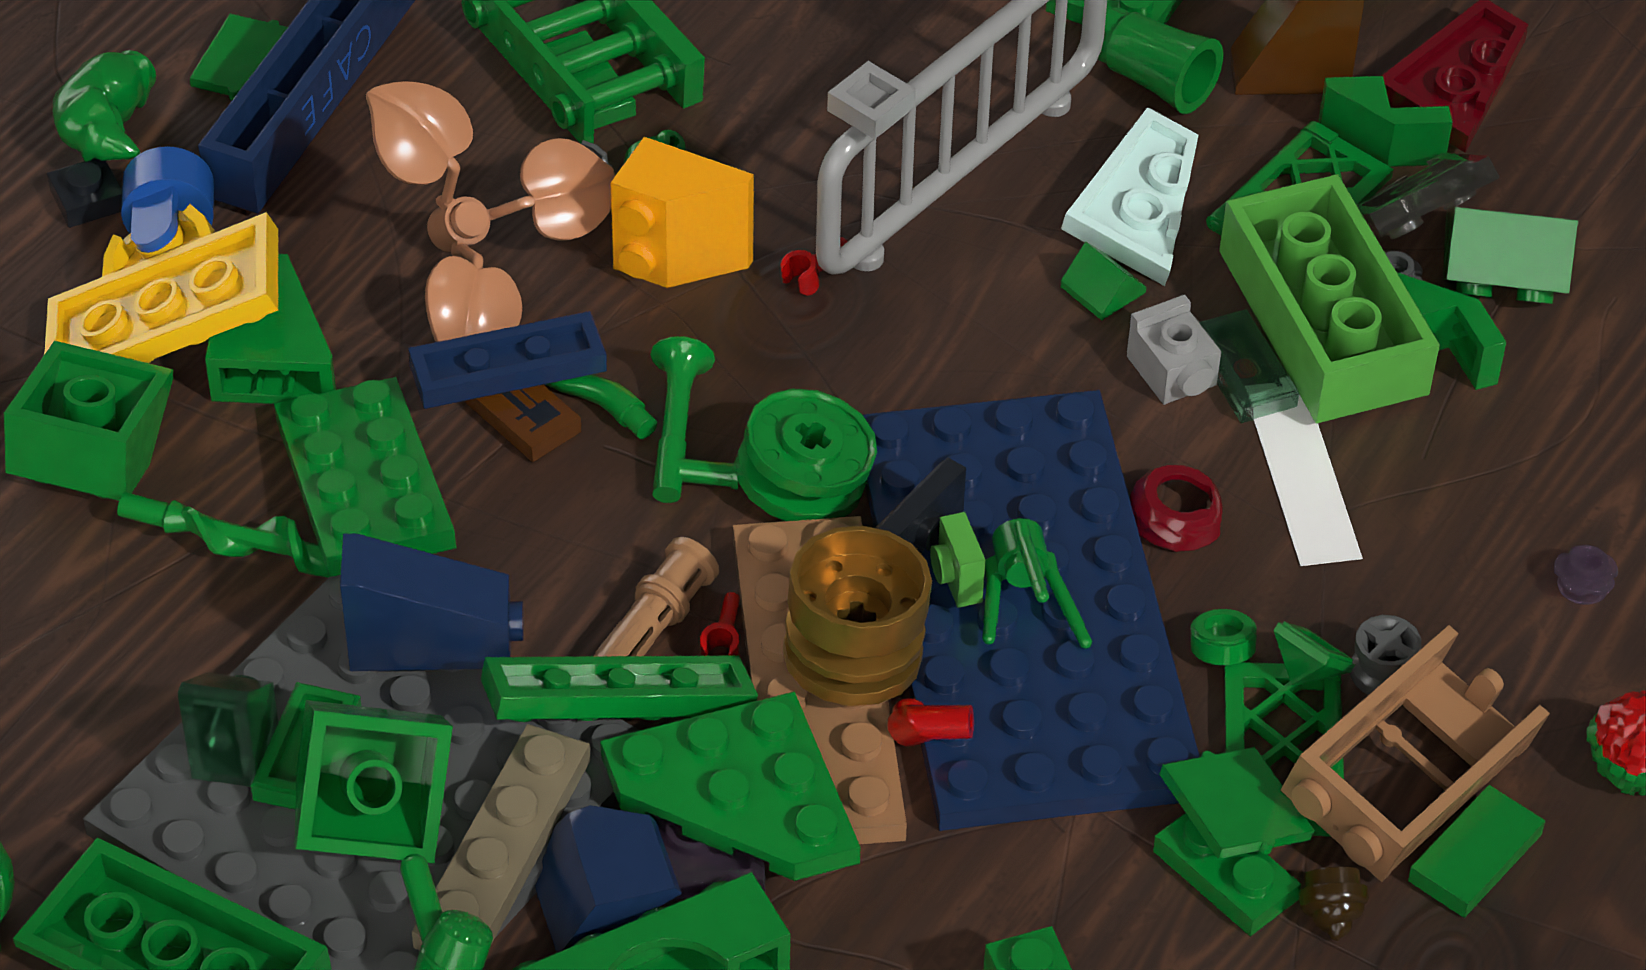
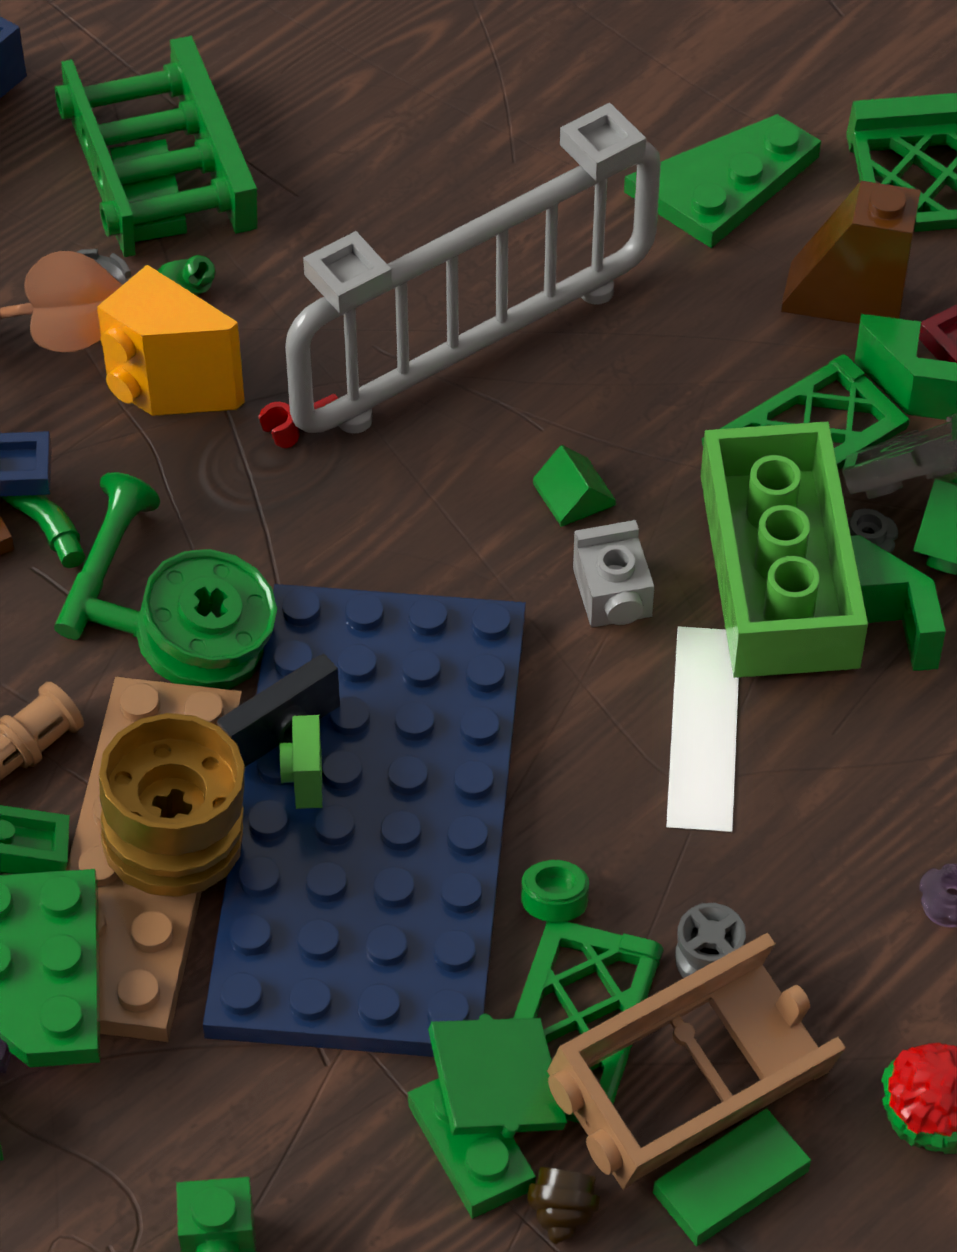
camera: 15 degrees right, 5 degrees up
(724, 631) = (66, 787): red hand -> none
(919, 723) = (213, 925): red arm -> none
(1024, 563) = (368, 775): green plant -> none
(1138, 197) = (638, 404): light aqua wing -> none
(1162, 58) = (711, 263): green plant -> none
(1173, 528) = (552, 766): dark red piece -> none
(1249, 369) = (684, 603): clear green tile -> none
(1308, 655) = (628, 928): green slope -> none

